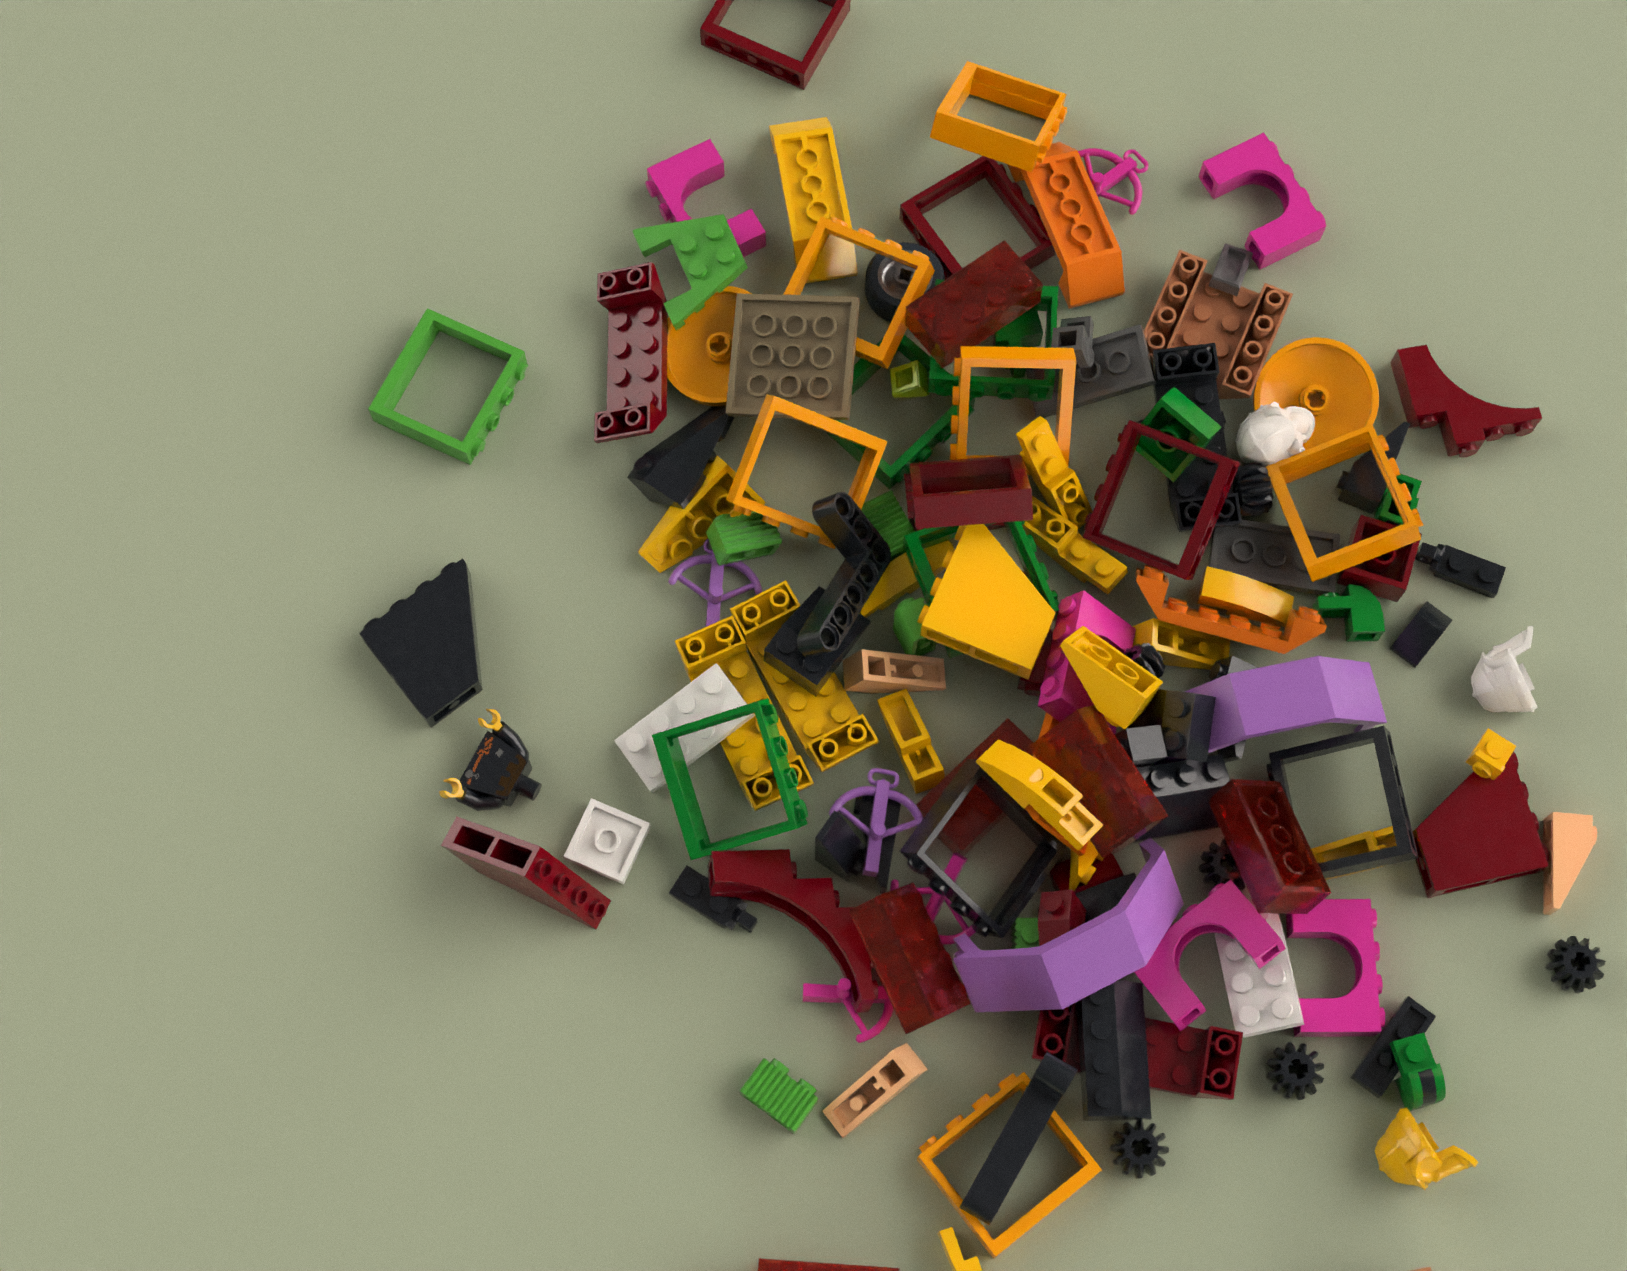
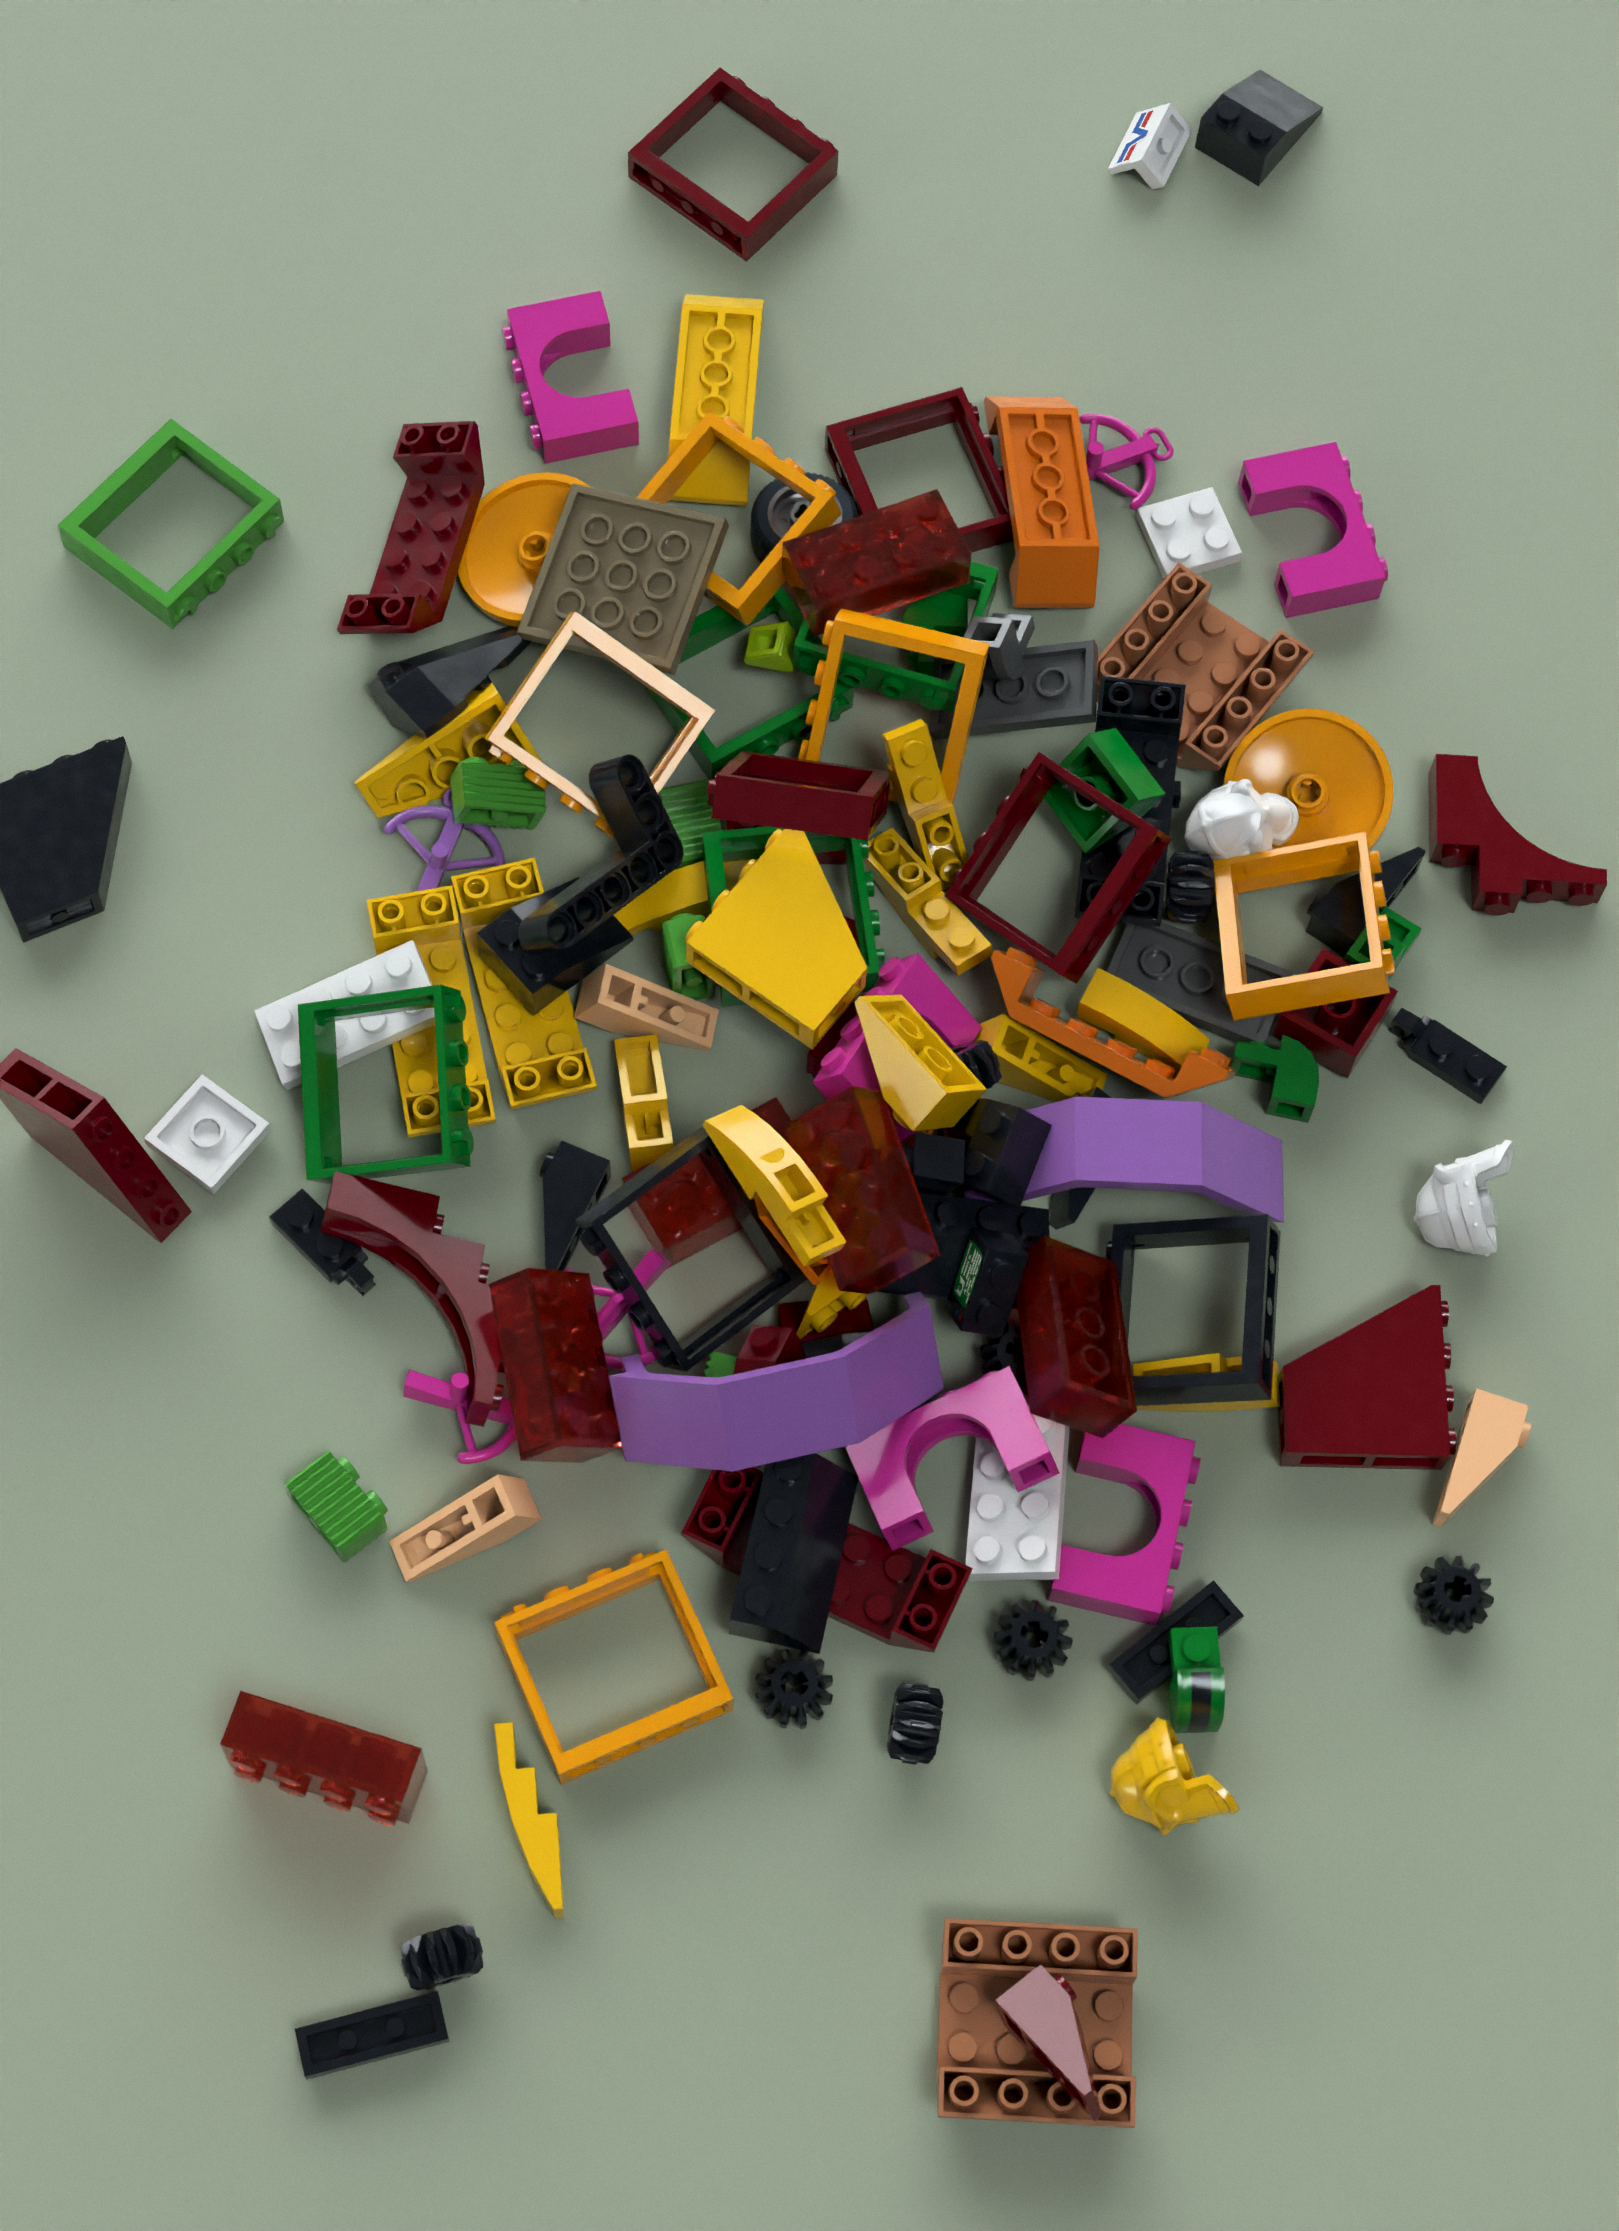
camera: 10 degrees right, 5 degrees down
(495, 771) = (88, 1011): black torso -> none
(706, 254) = (550, 429): bright green wing -> none
(839, 848) = (504, 1206): black slope -> none
(877, 829) = (557, 1196): medium lavender piece -> none
(1008, 92) = (917, 341): light orange window -> none
(1018, 1138) = (687, 1569): black beam -> none
(1175, 223) = (1189, 532): none -> white plate
(1196, 820) = (986, 1282): none -> black brick
(1230, 269) = (1243, 606): flat silver tile -> none
(1232, 1154) = (915, 1723): none -> black gear
(1421, 634) = (1367, 1124): black slope -> none
(1490, 755) = (1409, 1294): yellow bracket -> none

